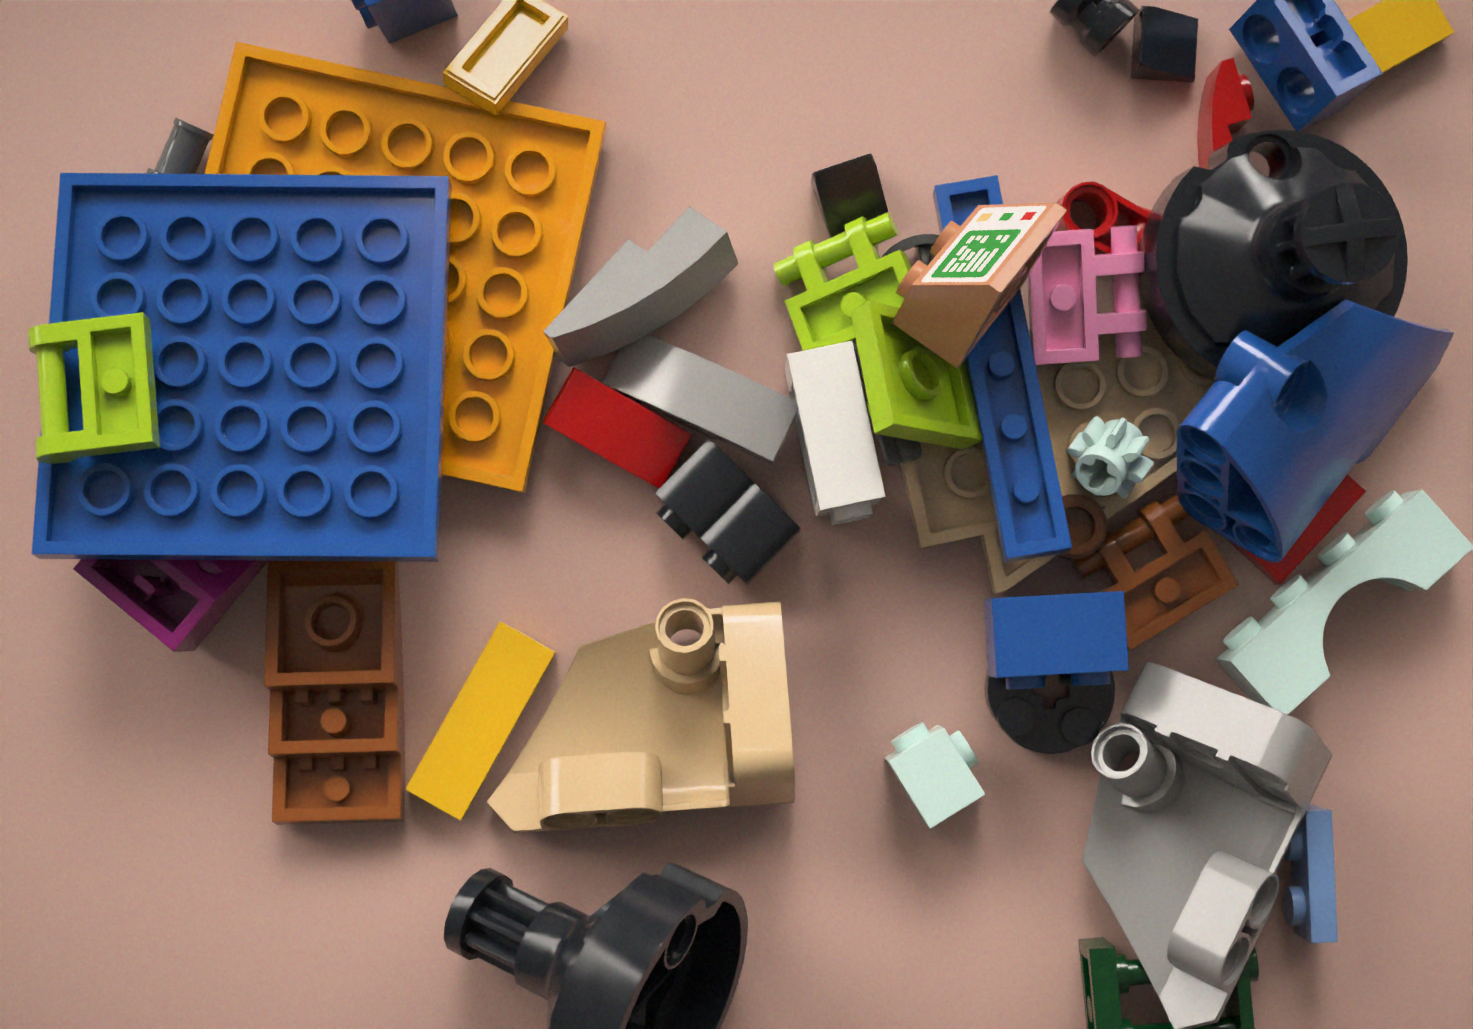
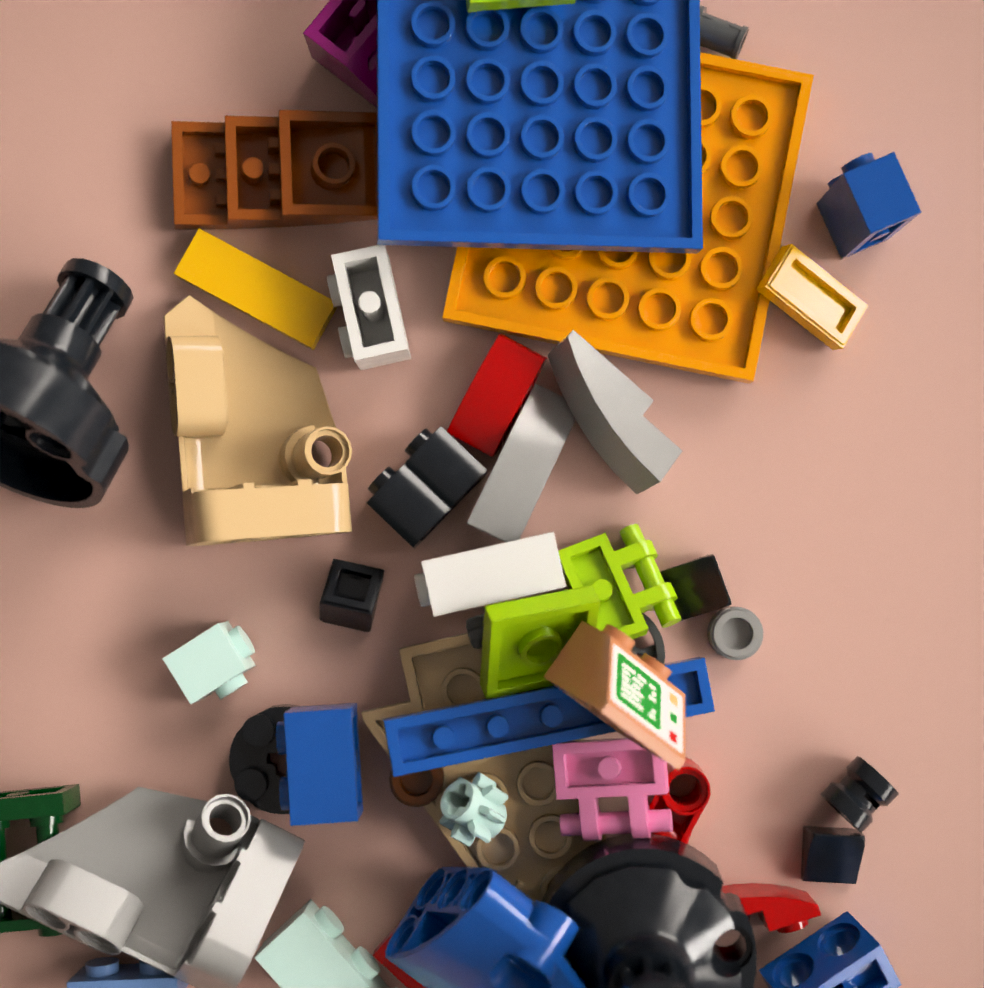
camera: 90 degrees right, 0 degrees up
(509, 575) = (370, 307): none -> white brick
(855, 607) = (351, 595): none -> black slope
(904, 151) = (735, 633): none -> light grey tile
(1170, 585) = (369, 859): dark orange plate -> none

